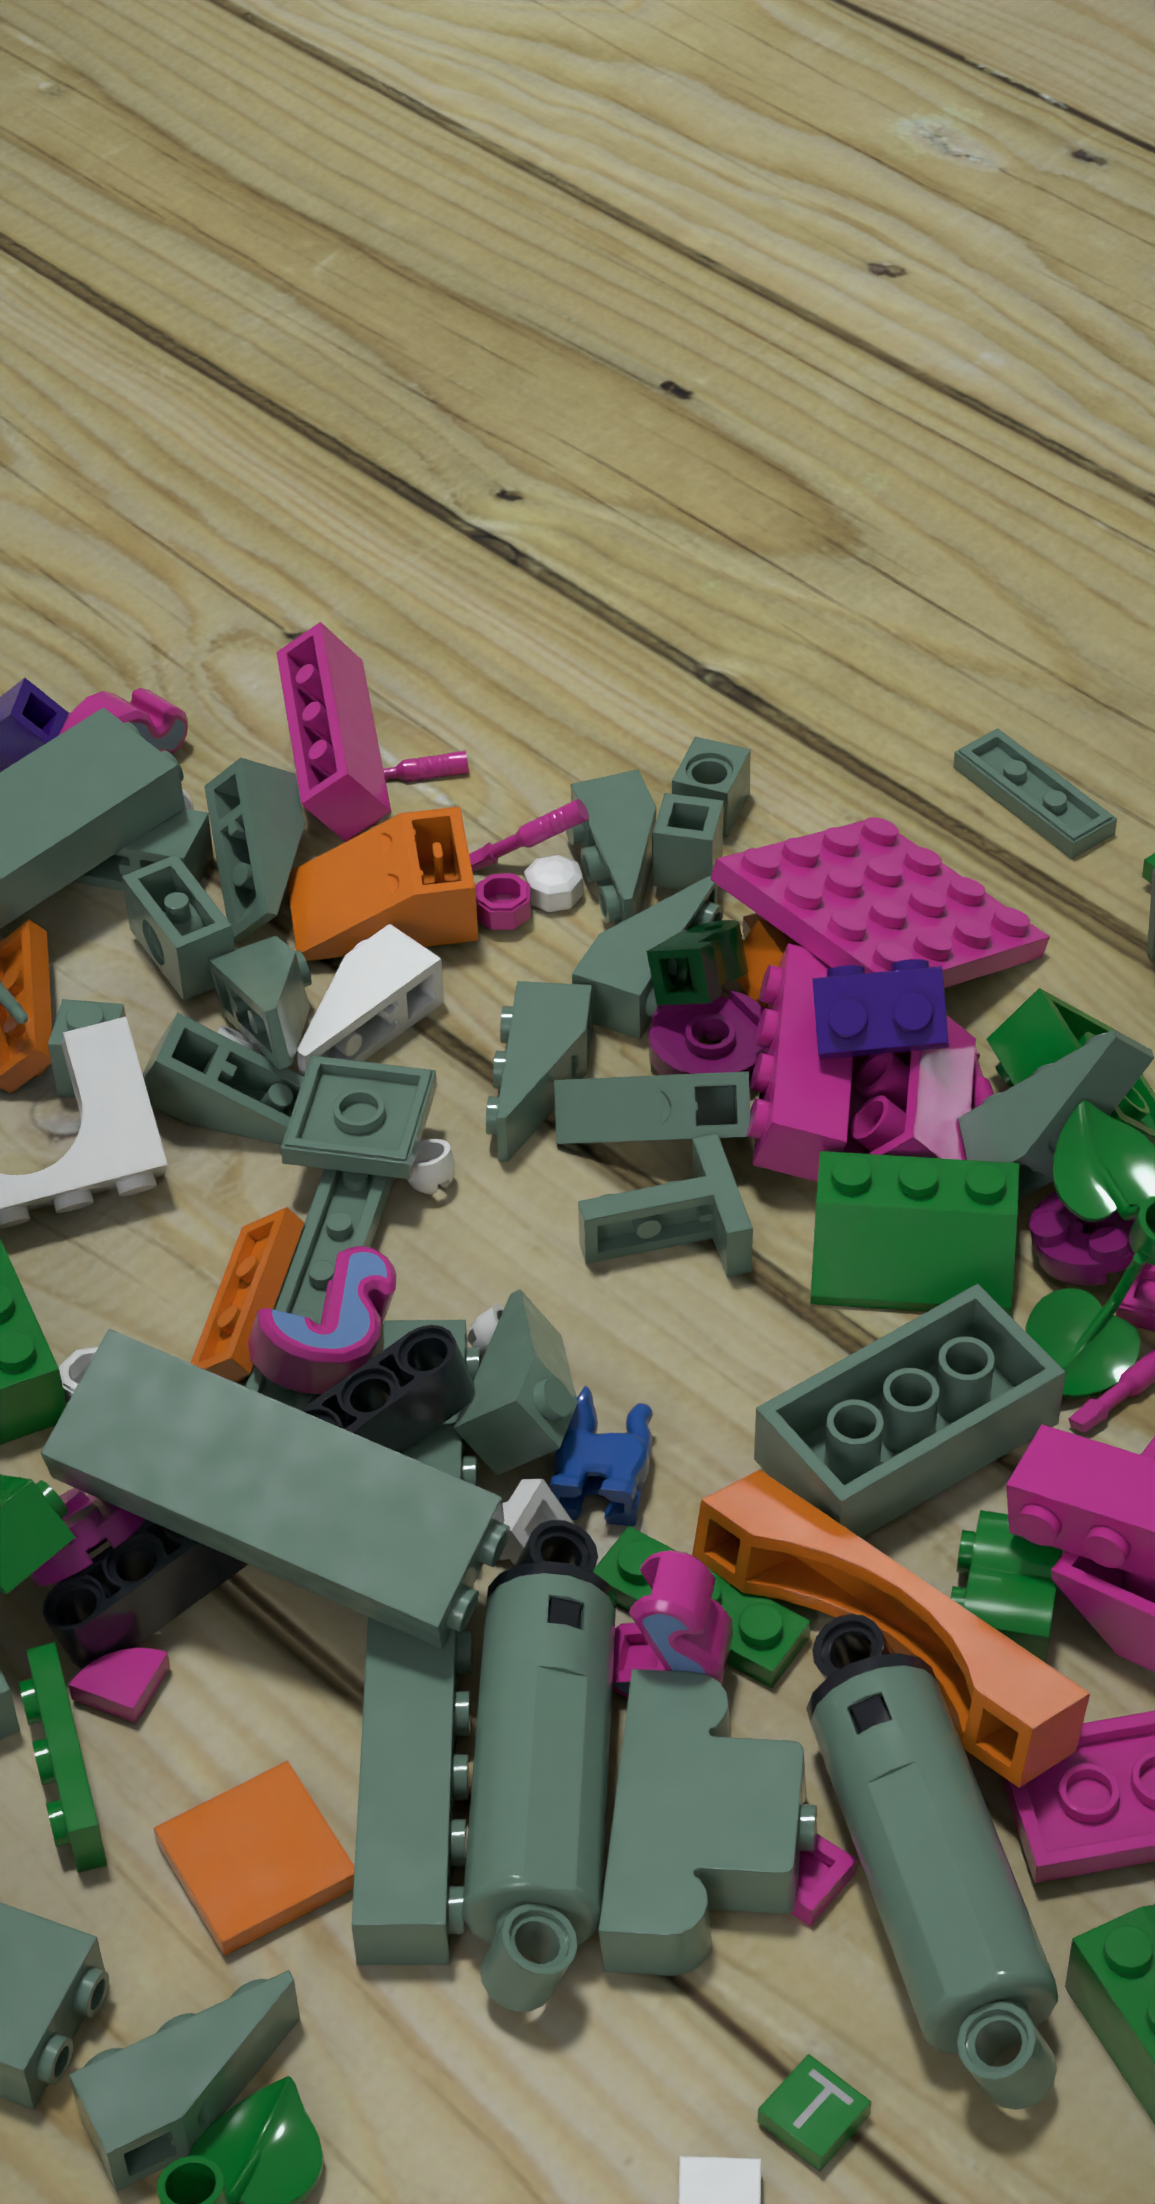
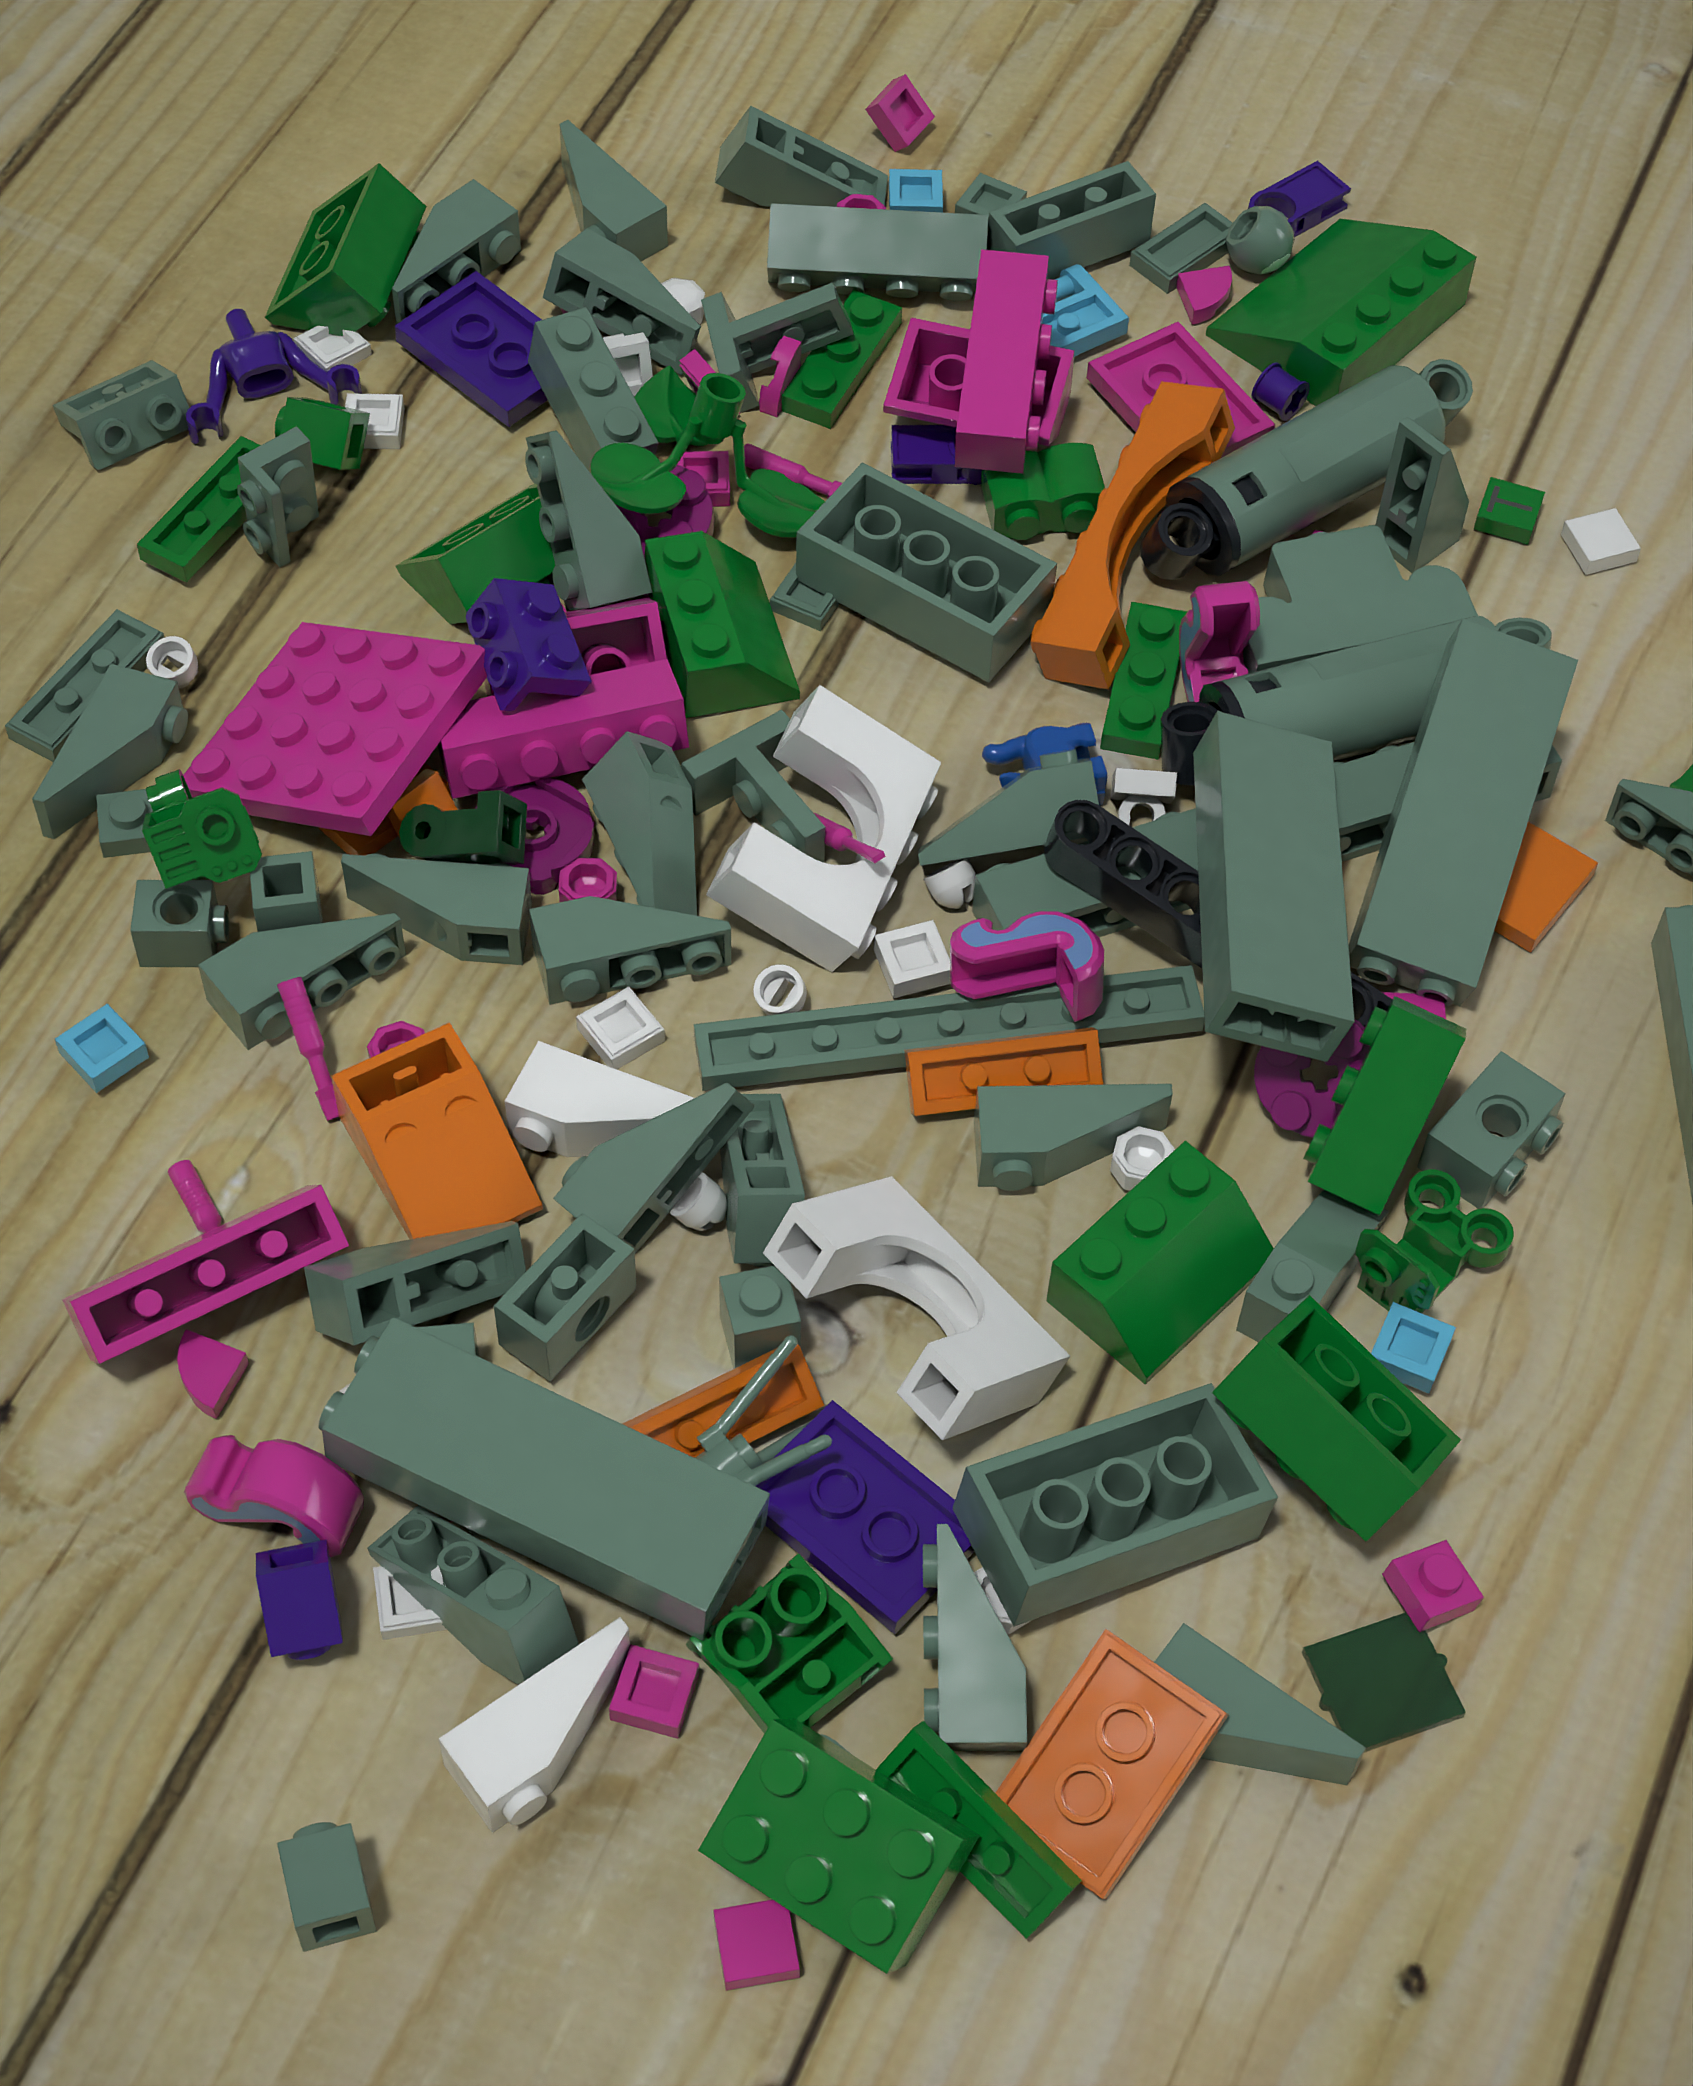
camera: 115 degrees left, 10 degrees up
(61, 1760) = (1523, 1013): green plate -> none
(167, 1289) = (1051, 1130): none -> sand green slope
(259, 740) = (209, 1371): none -> dark pink tile
(320, 1761) = (1460, 813): none -> sand green brick
(359, 1117) = (774, 1034): sand green plate -> none
(421, 1273) = (913, 958): none -> white plate
(459, 1056) = (620, 1028): none -> white tile
(554, 883) = (350, 1024): white tile -> none
(578, 1242) = (842, 838): none -> dark pink piece
(604, 728) = (102, 1048): none -> medium azure plate
(624, 1057) = (587, 878): none -> dark pink tile
(627, 1295) = (883, 788): none -> white arch
(787, 780) = (198, 834): none -> green piece
(816, 1933) = (1421, 498): none -> sand green slope
(853, 791) = (122, 821): none -> sand green plate
(940, 782) = (112, 745): none -> sand green slope
(1027, 840) = (179, 653): none -> white hinge
(1102, 1903) = (1280, 391): none -> dark purple axle

